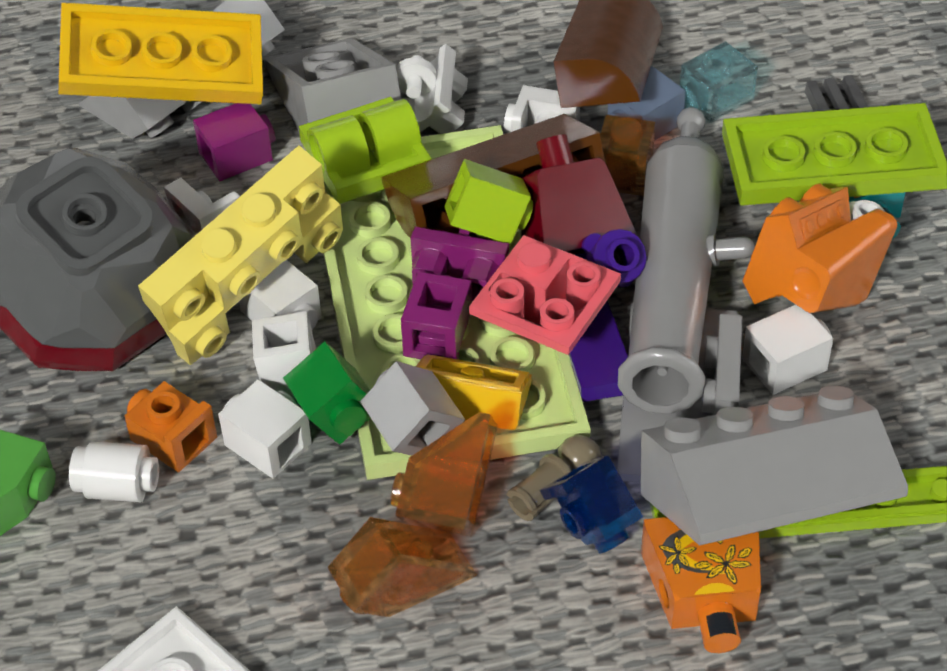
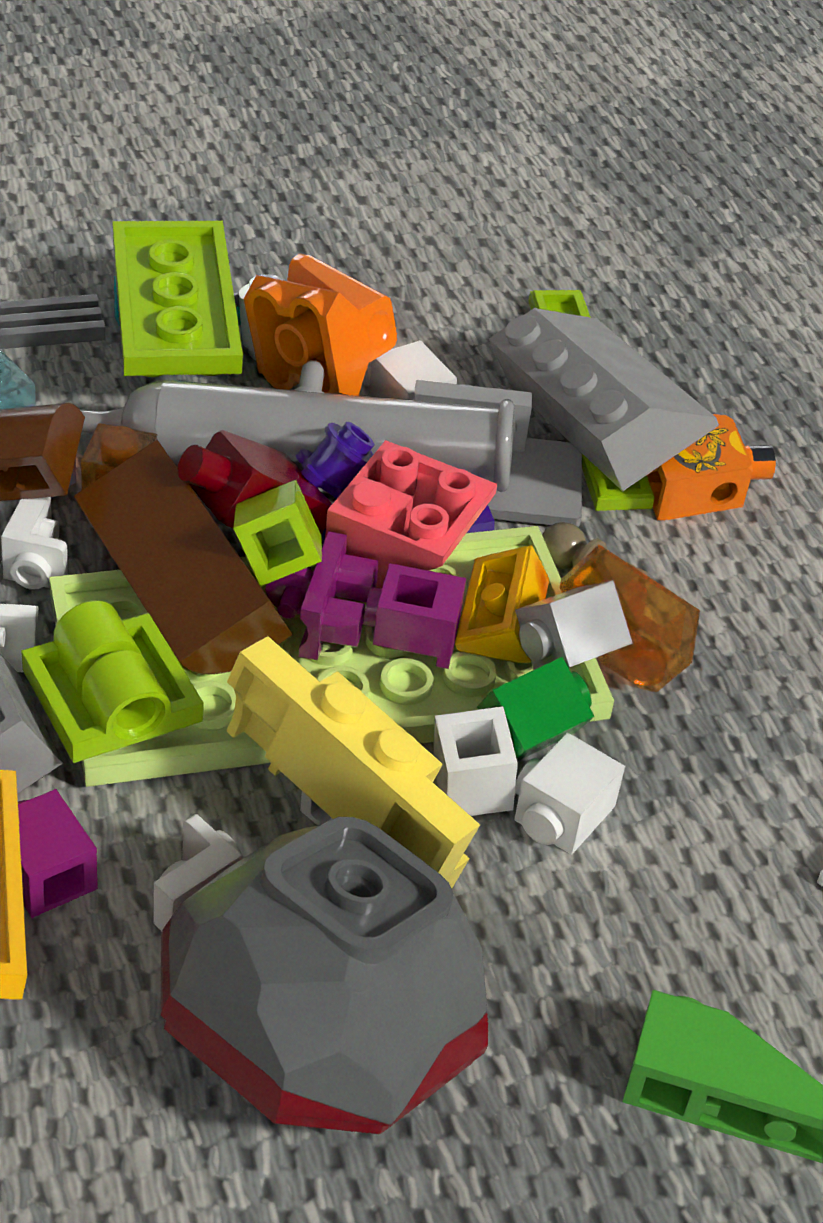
camera: 100 degrees left, 5 degrees down
(113, 471) = (652, 941): white brick -> none
(170, 424) = (572, 888): orange brick -> none
(397, 566) = (749, 678): clear orange slope -> none
(595, 503) = (648, 530): clear blue brick -> none

